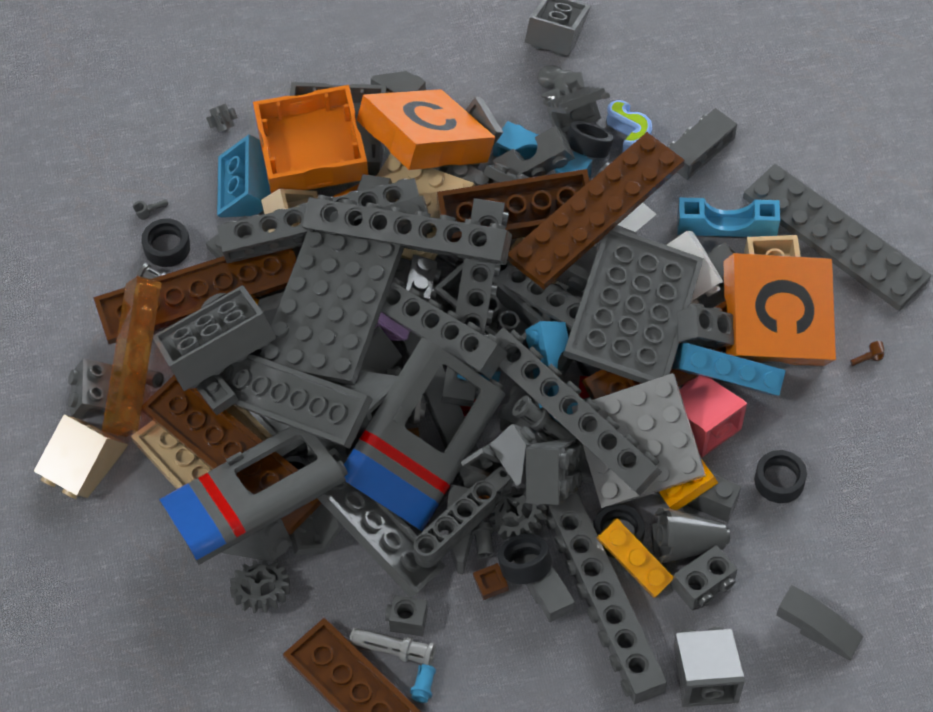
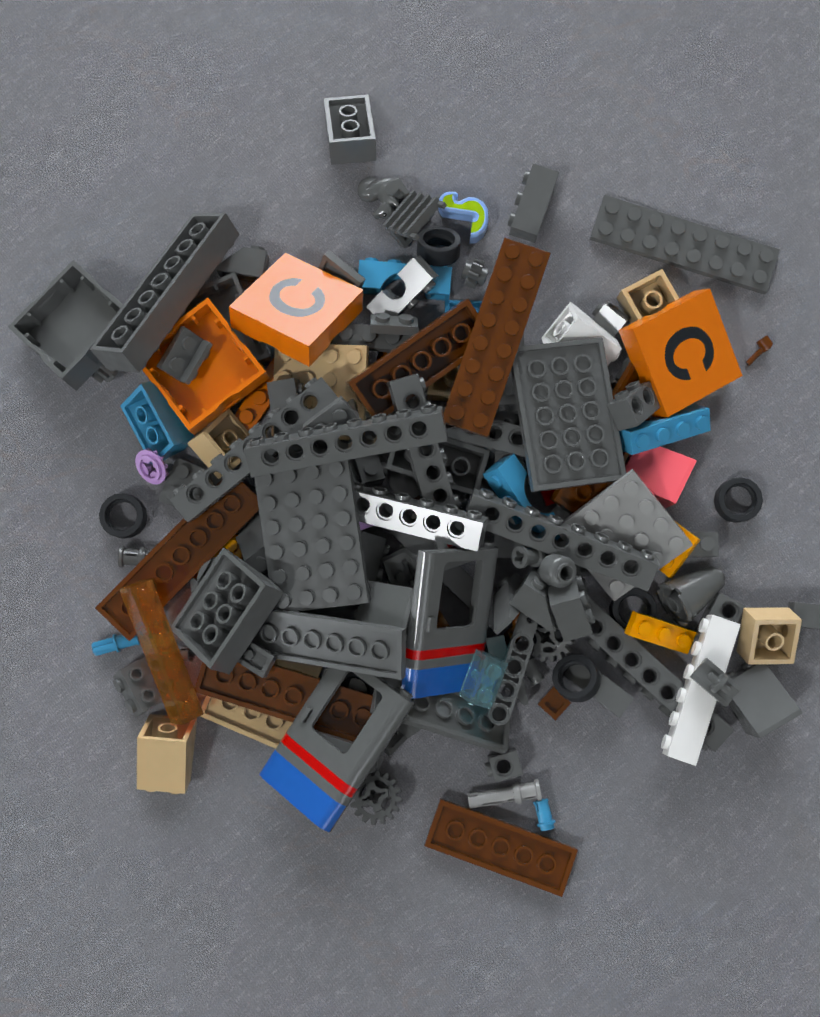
camera: 25 degrees left, 25 degrees up
(90, 344) = (112, 644): none -> dark azure axle
(143, 210) = (88, 492): dark grey hand -> none
(210, 214) = (146, 469): none -> lavender gear
(218, 70) = (67, 324): none -> dark grey tile
(300, 124) = (184, 355): none -> dark grey bracket
(313, 67) = (165, 292): none -> dark grey brick
(427, 507) = (483, 679): none -> clear light blue brick
(551, 428) = (557, 570): none -> dark grey head
(647, 619) = (695, 704): none -> white brick
(662, 601) = (715, 682): none -> dark grey hips
(748, 605) = (768, 635): none -> tan brick
(754, 220) = (609, 266): dark azure arch -> none

